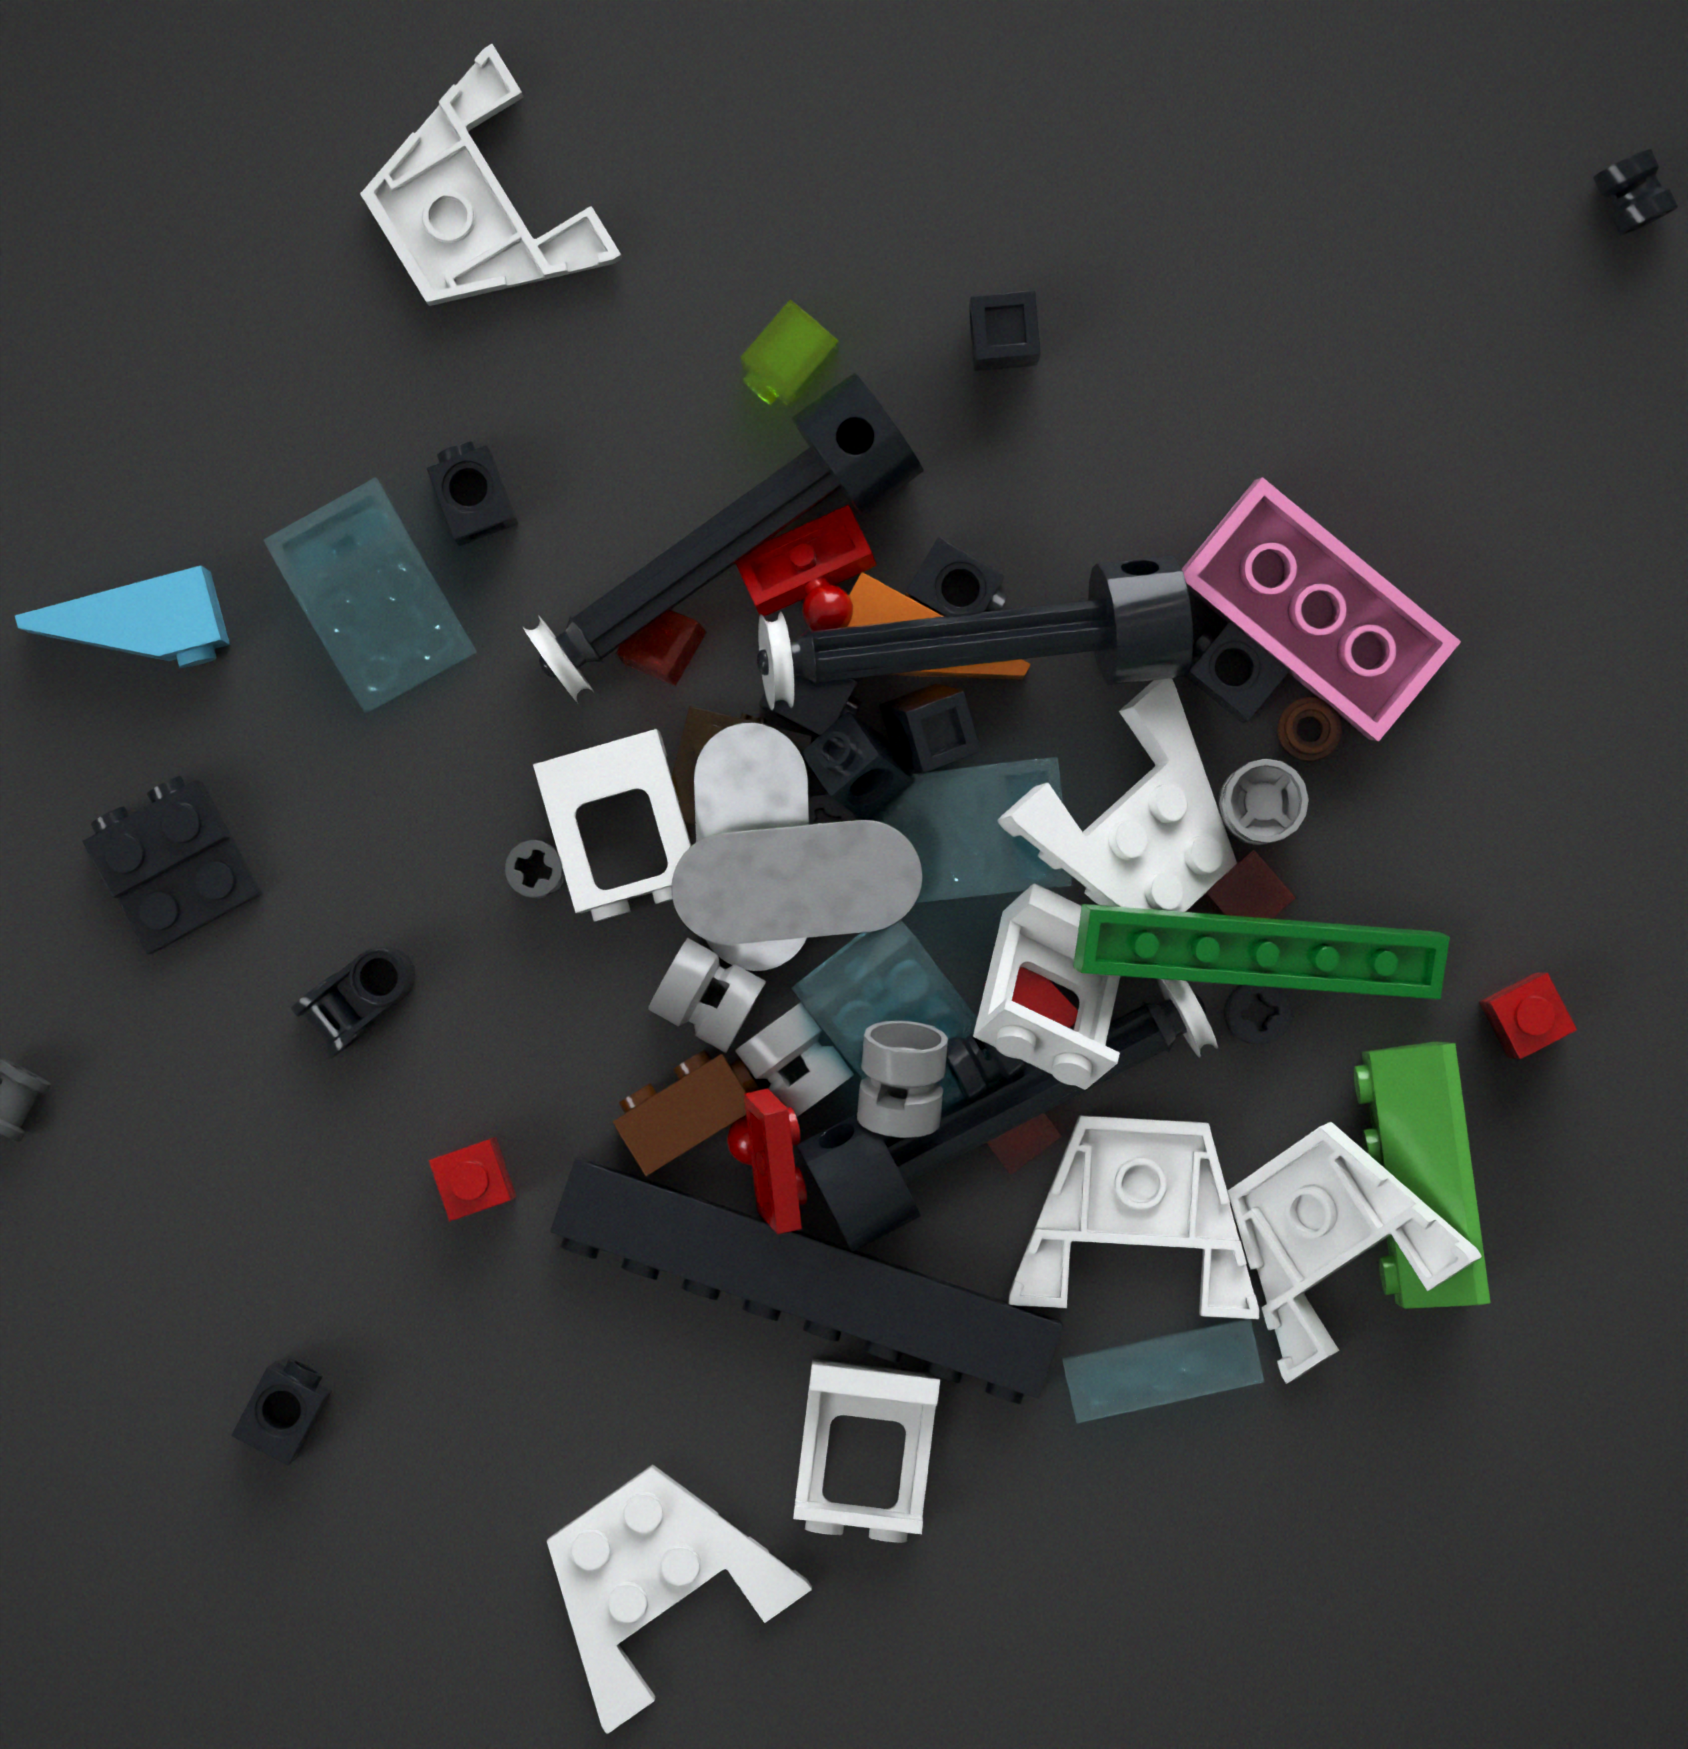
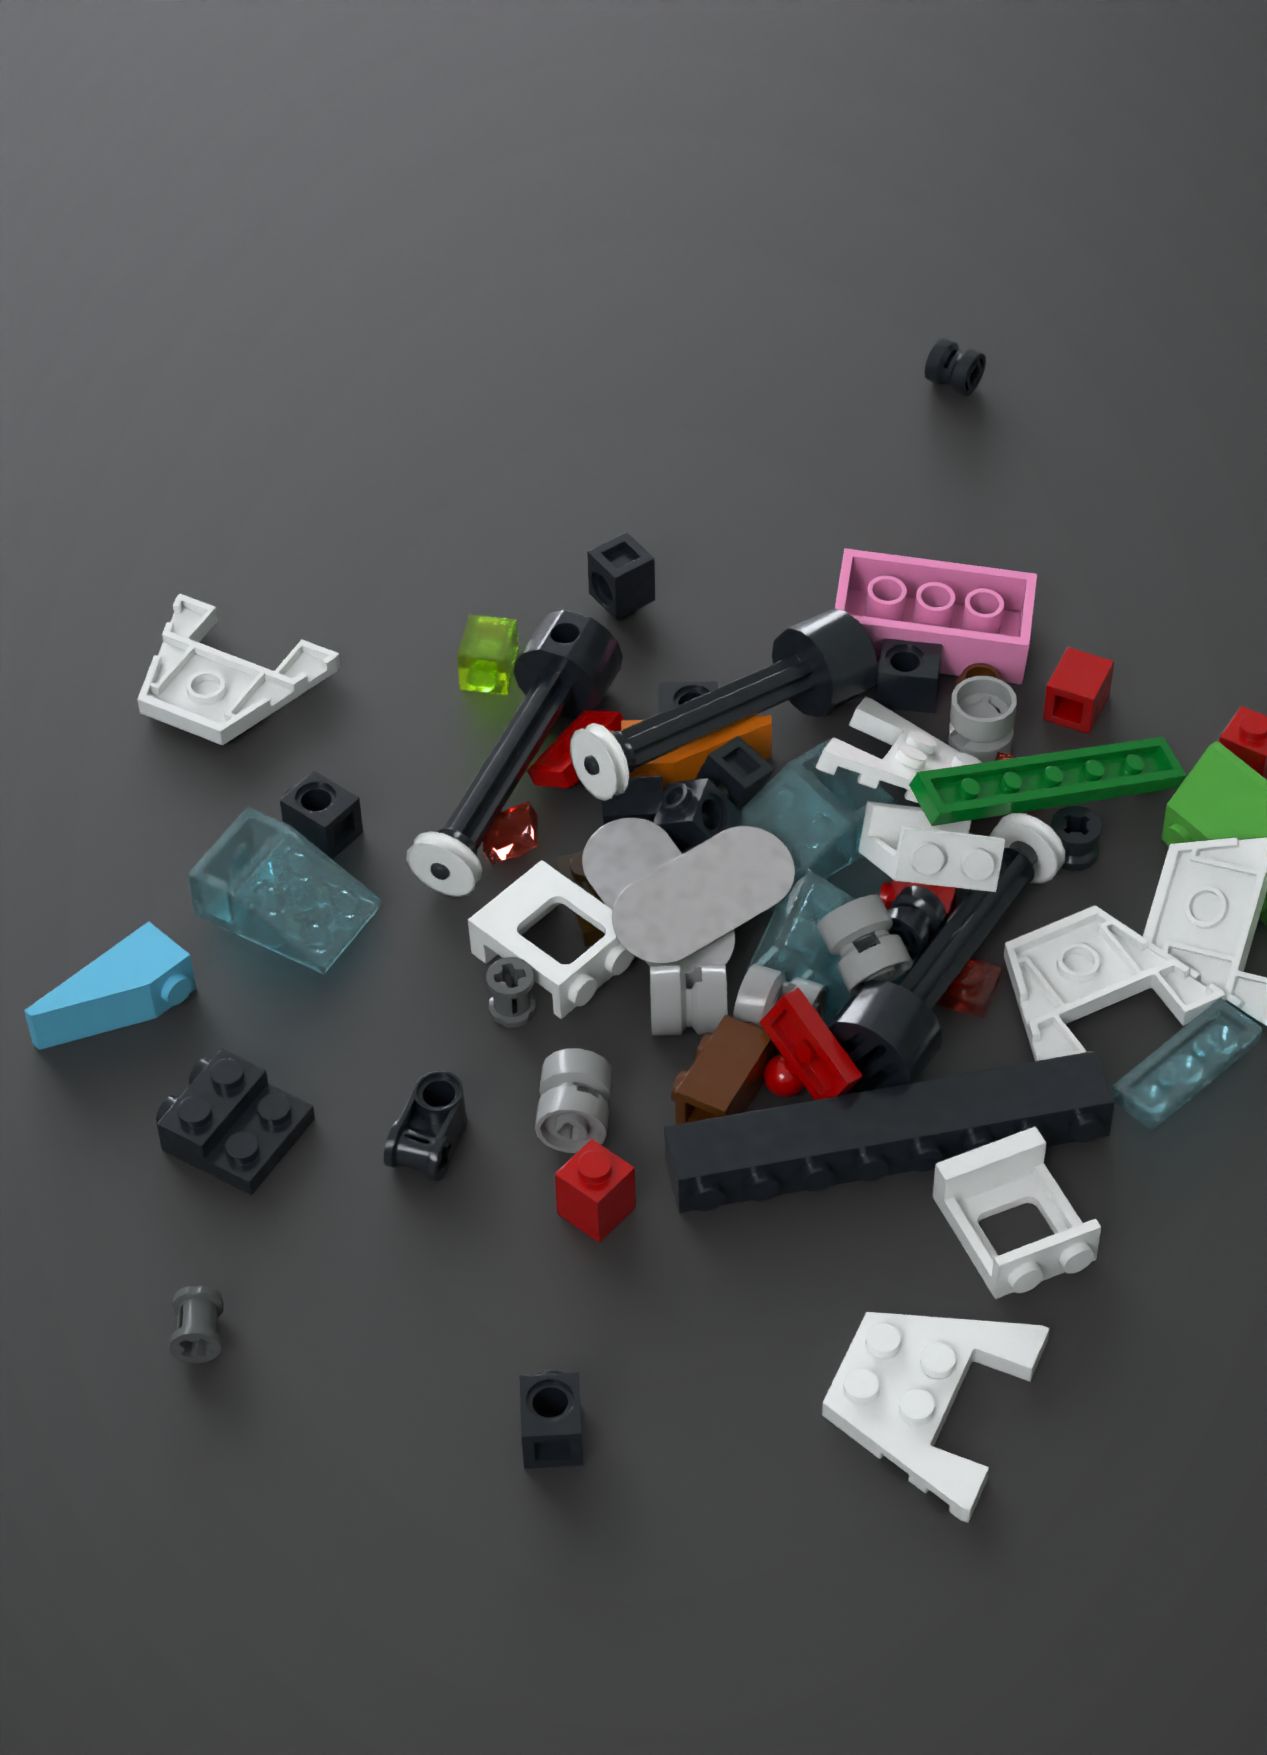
camera: 30 degrees left, 40 degrees down
(537, 1049) = (573, 1099): none -> light grey wheel
(1411, 807) = (1078, 690): none -> red brick

